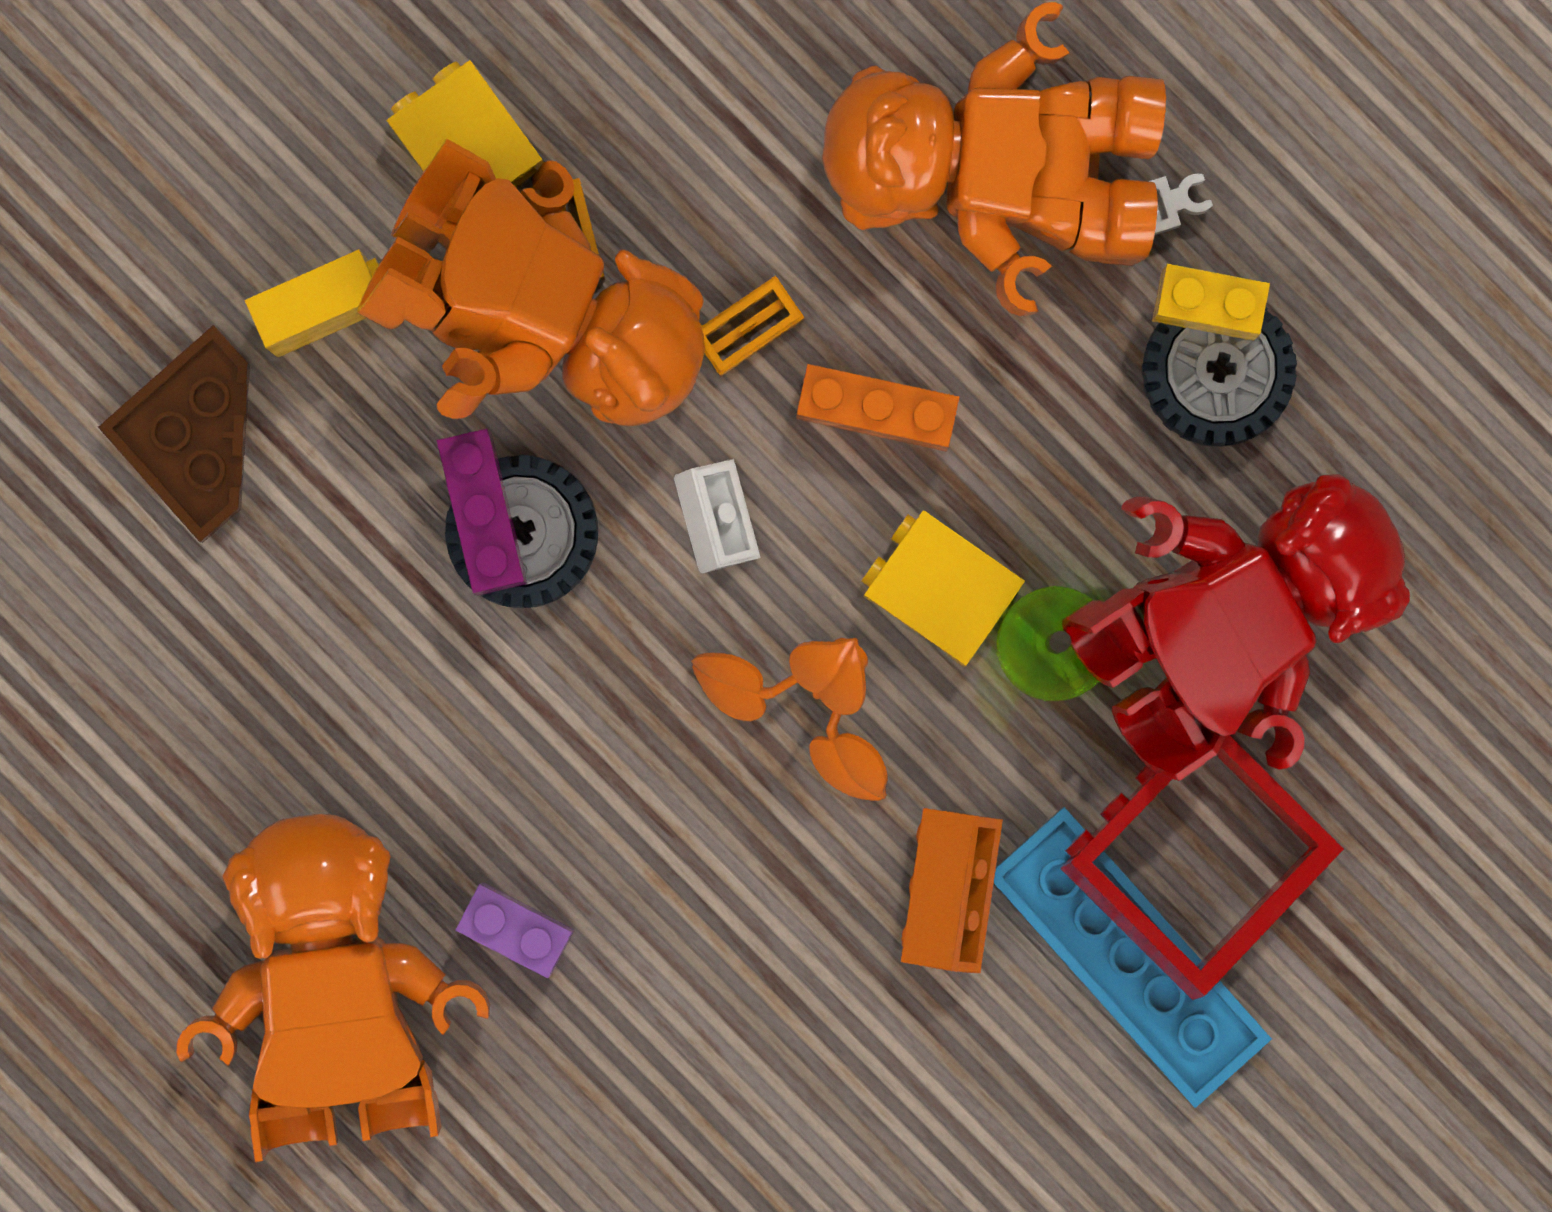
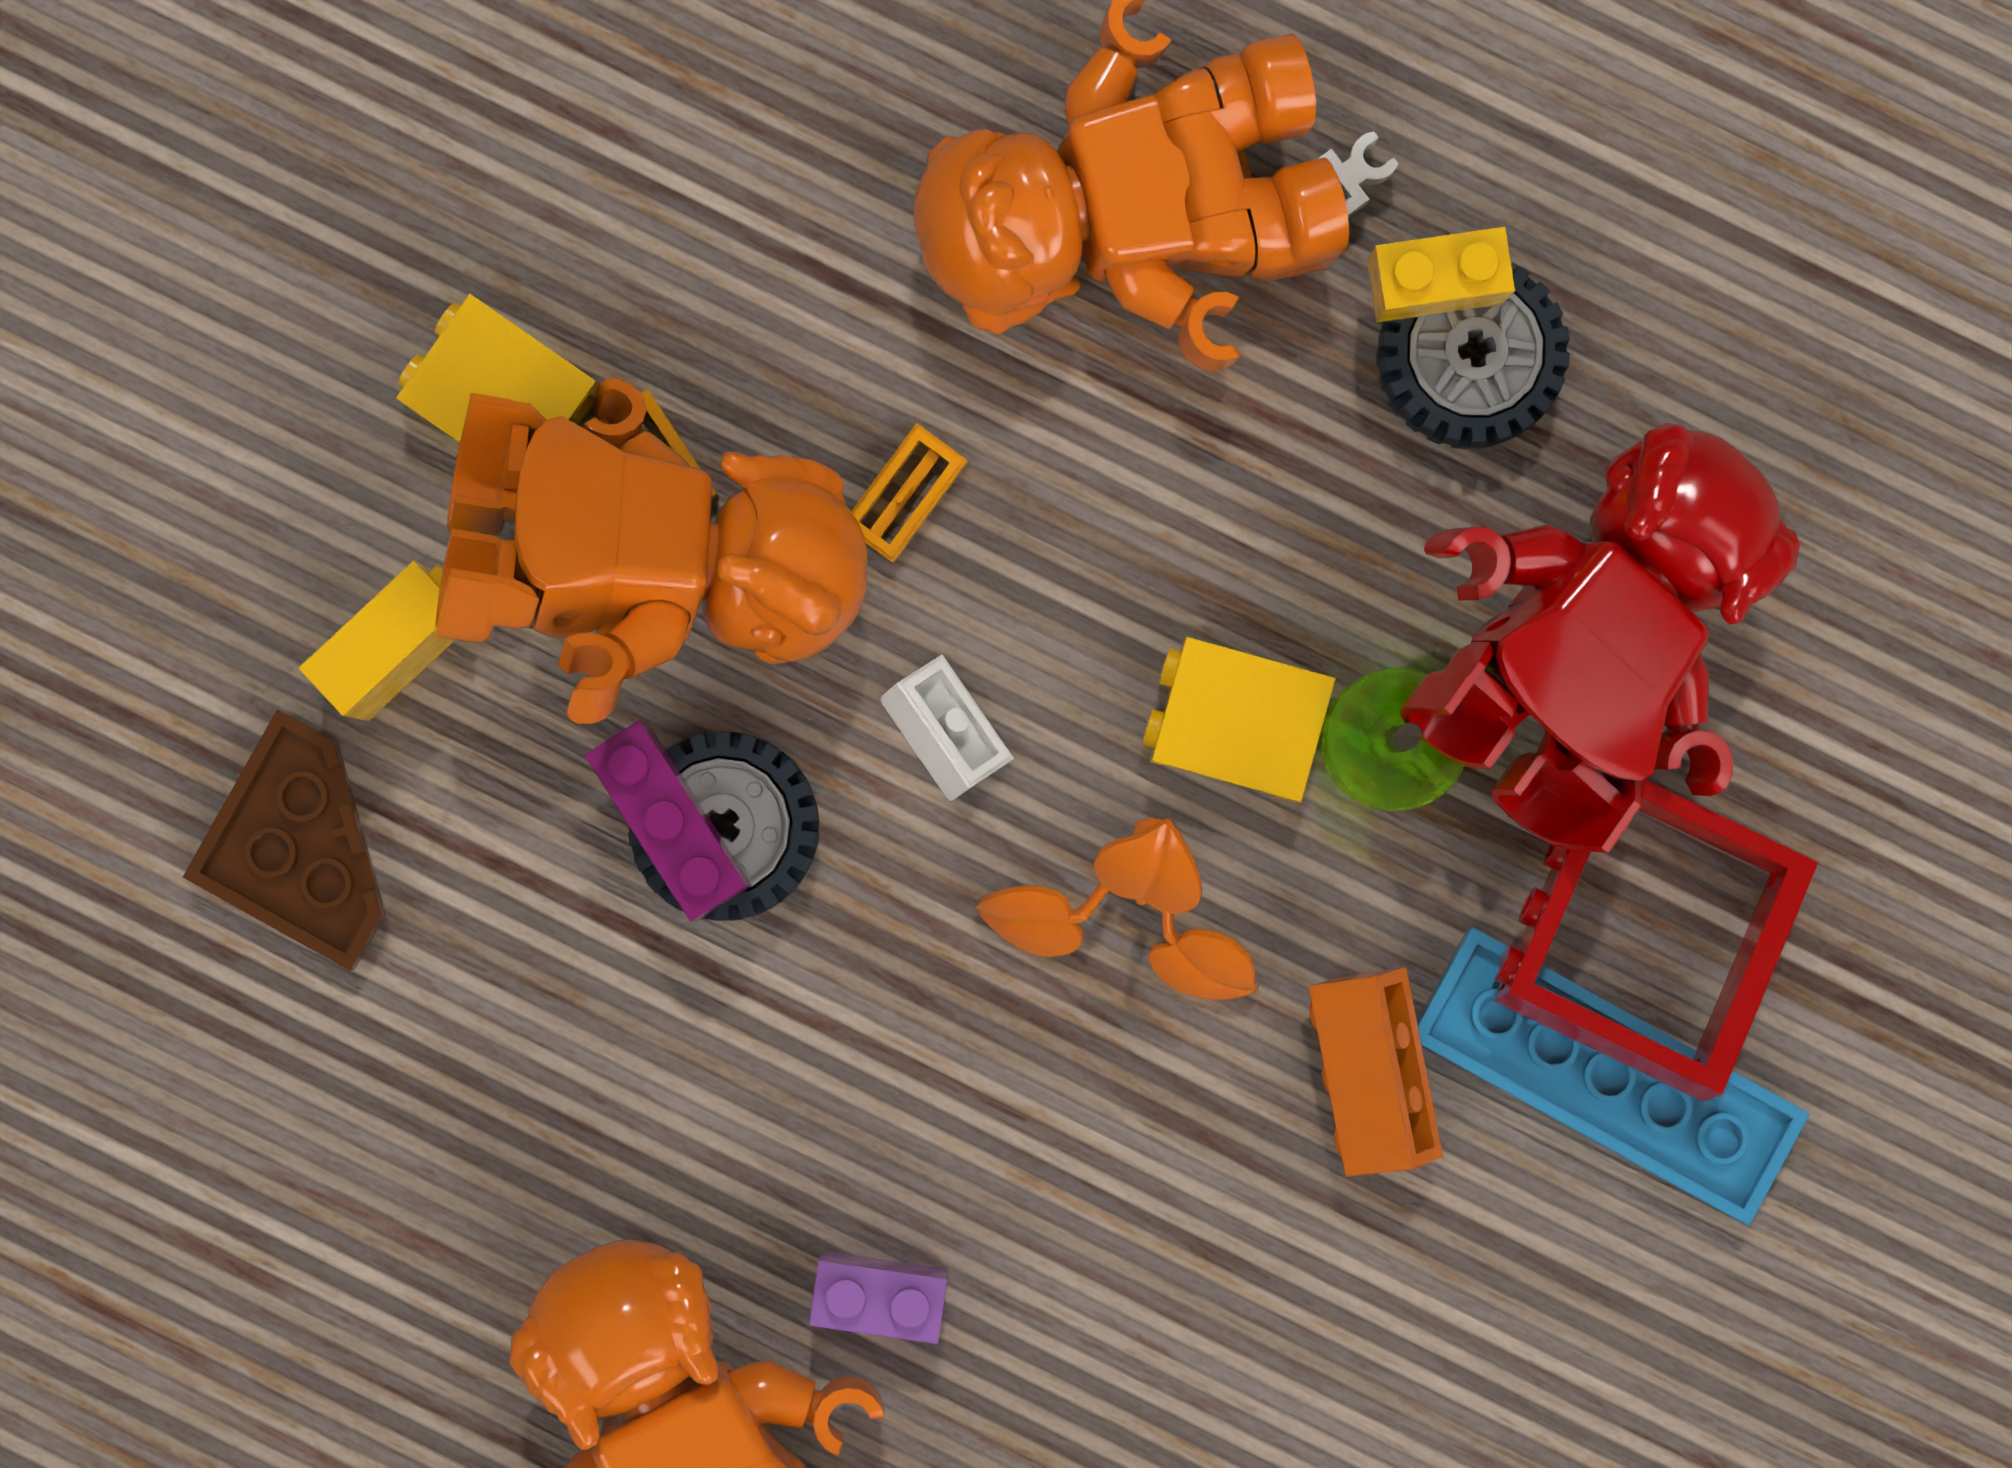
camera: 25 degrees left, 0 degrees up
(877, 407) = (1091, 535): orange brick -> none

